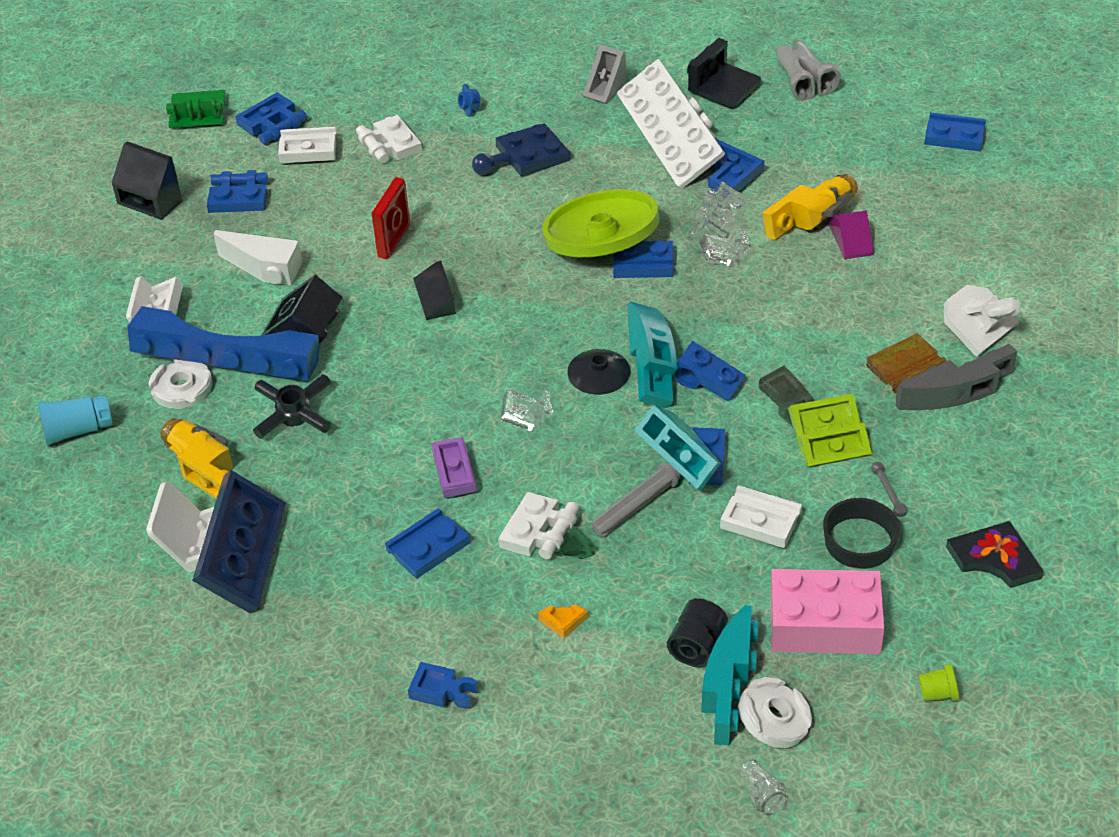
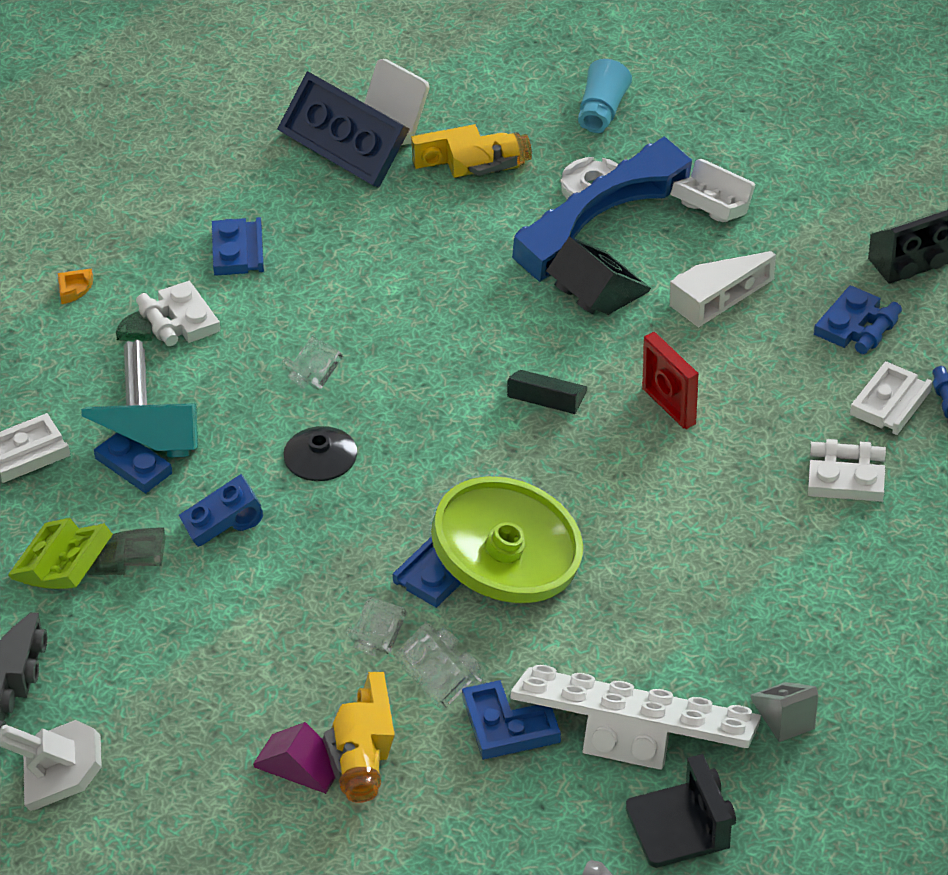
camera: 125 degrees right, 0 degrees up
(292, 406) = (479, 226): black bar -> none
(437, 684) = (88, 184): blue plate -> none
(453, 467) = (299, 293): medium lavender plate -> none
(469, 99) = (855, 562): blue plate -> none
(525, 150) = (714, 573): dark blue plate -> none
(655, 353) = (290, 479): teal slope -> none
(903, 360) = (73, 667): clear orange plate -> none

